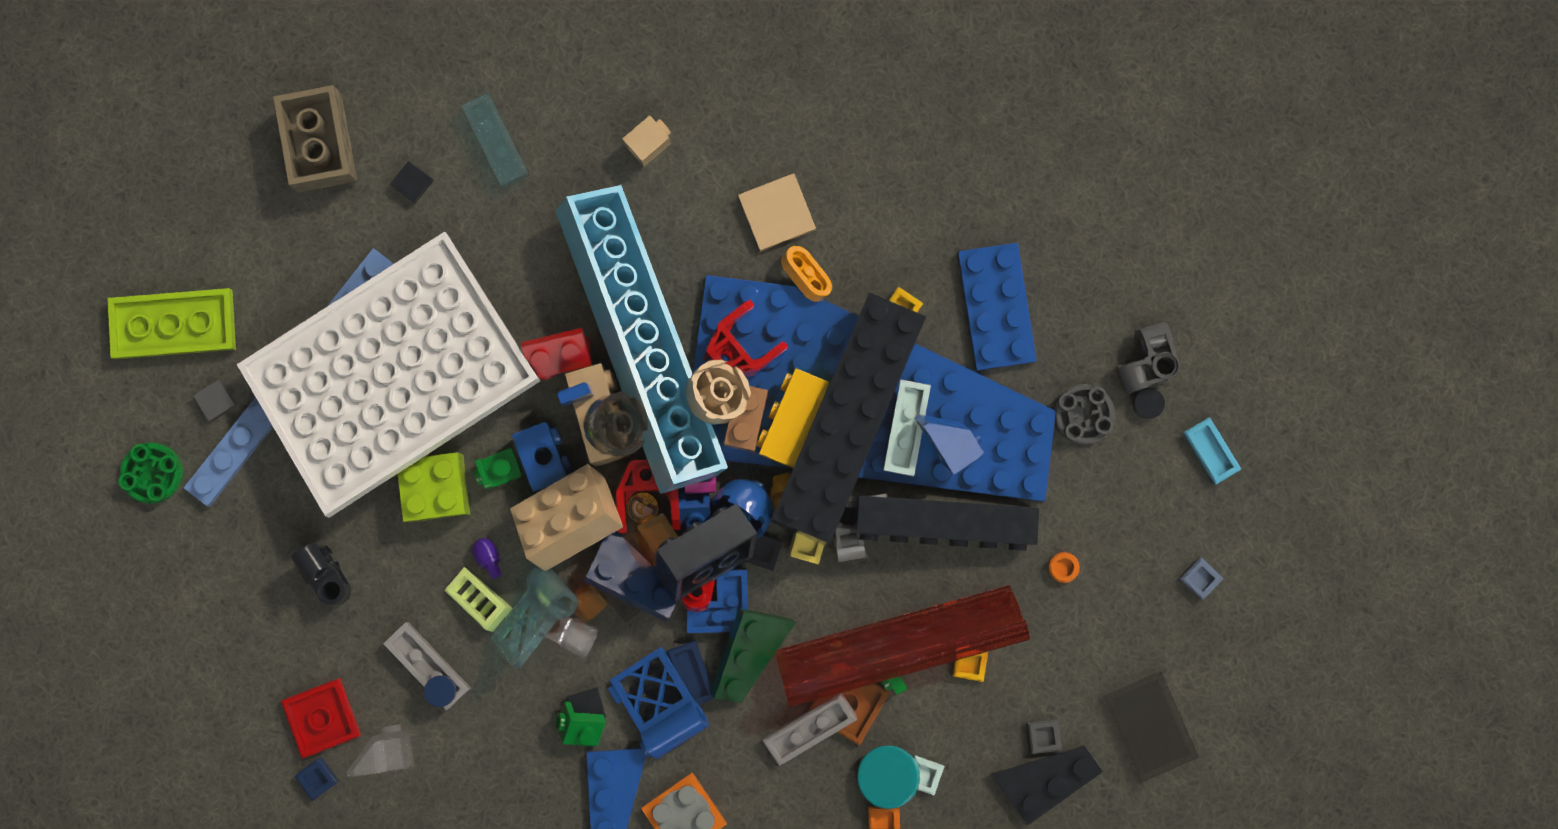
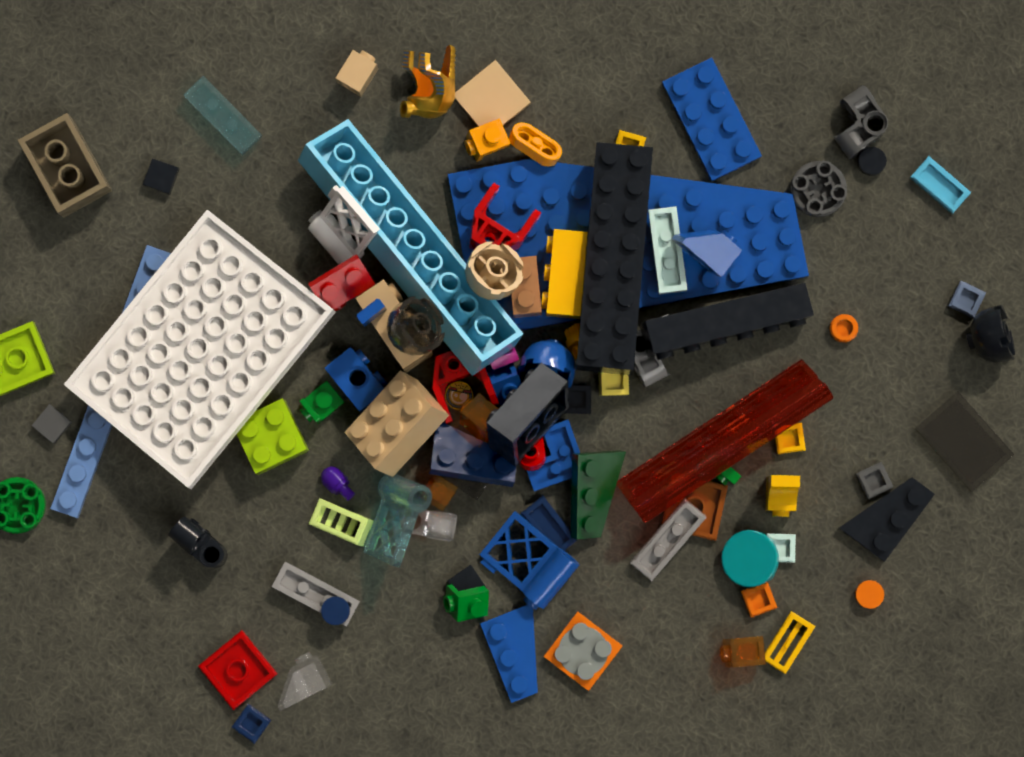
camera: 10 degrees left, 0 degrees up
(569, 295) = (337, 236): none -> white piece
(720, 183) = (433, 89): none -> pearl gold piece
(757, 252) = (486, 139): none -> light orange bracket
(943, 721) = (782, 494): none -> yellow arch
(1215, 626) = (991, 335): none -> black cylinder

